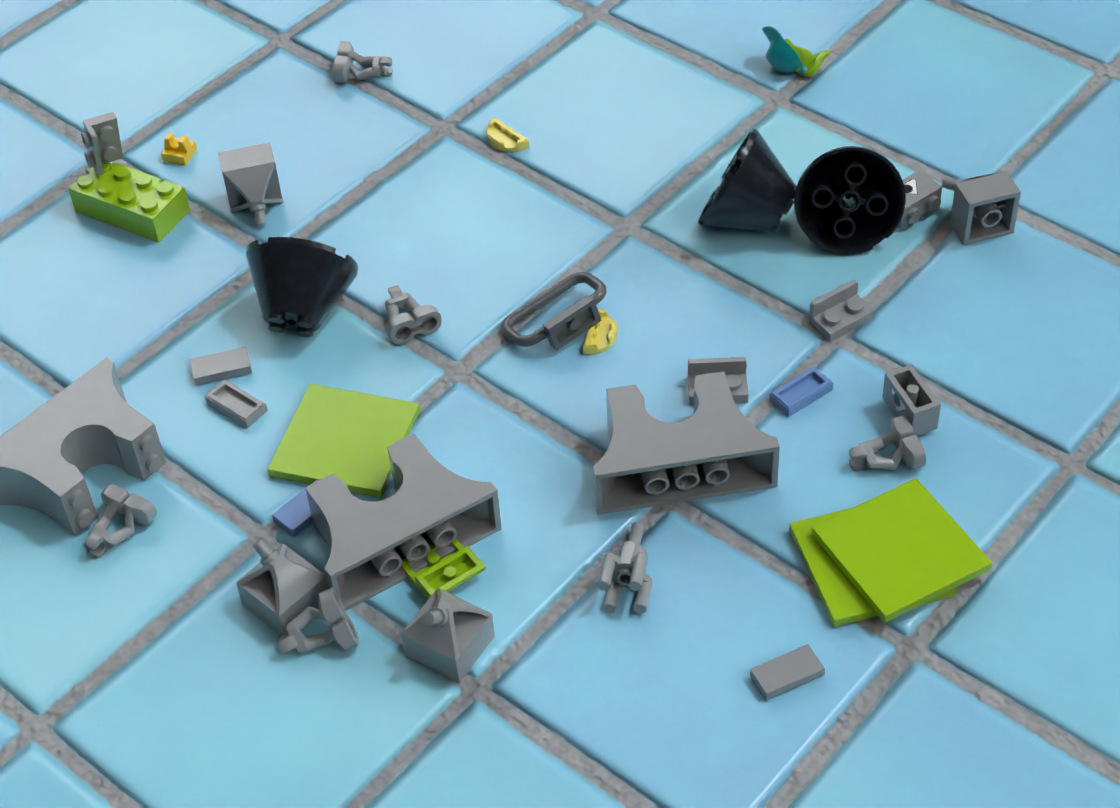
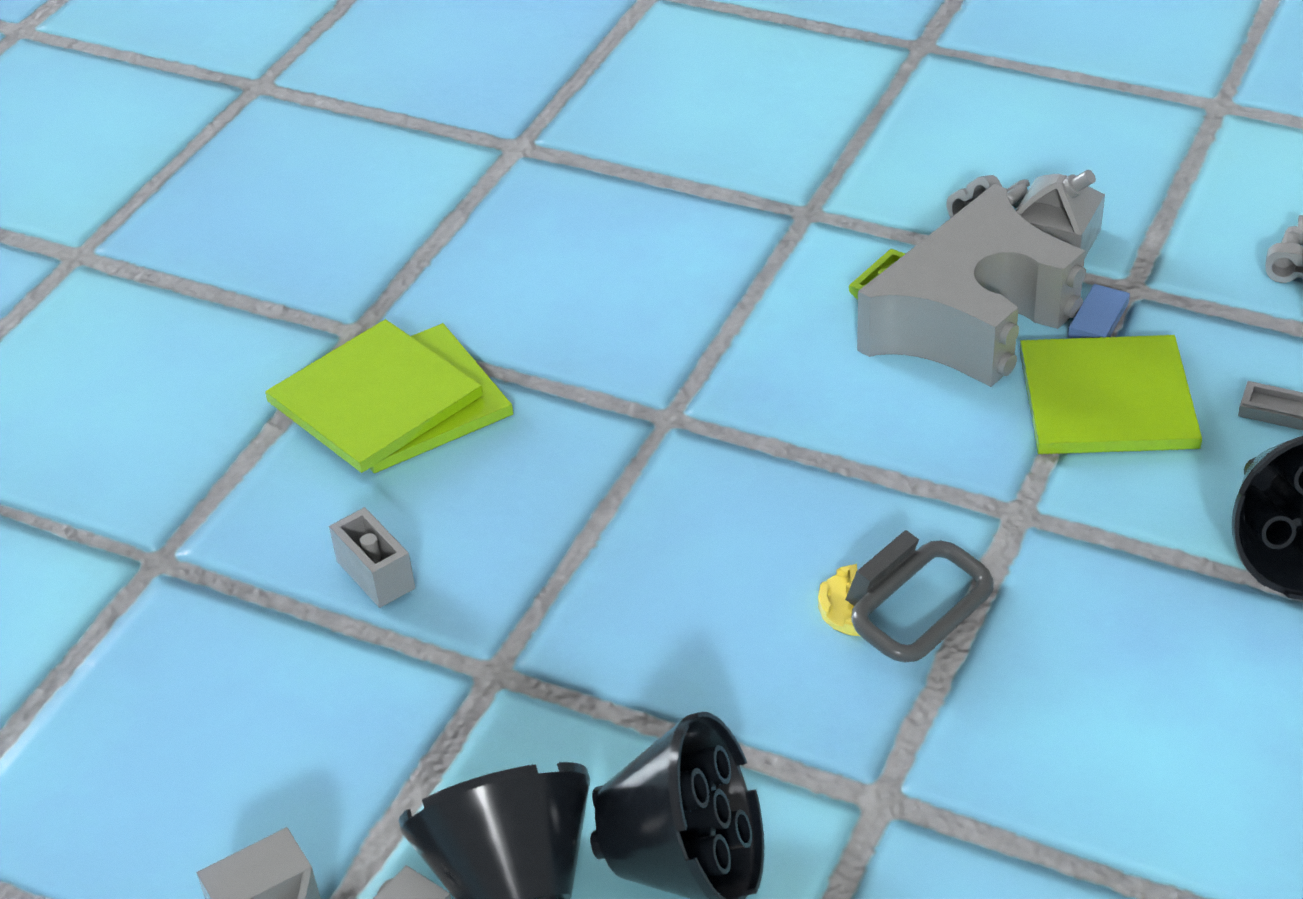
camera: 165 degrees right, 5 degrees down
(403, 326) = (1122, 533): light grey piece -> none
(448, 635) = (854, 217): light grey piece -> none
(626, 569) = (685, 315): light grey plant -> none
(683, 460) = (666, 411): light grey piece -> none
(735, 373) = (648, 556): light grey bracket -> none
(787, 672) = (487, 279): light grey tile -> none
(801, 391) = (529, 575): medium blue tile -> none
(839, 311) = (491, 698): light grey bracket -> none
(908, 448) = (429, 496): light grey piece -> none

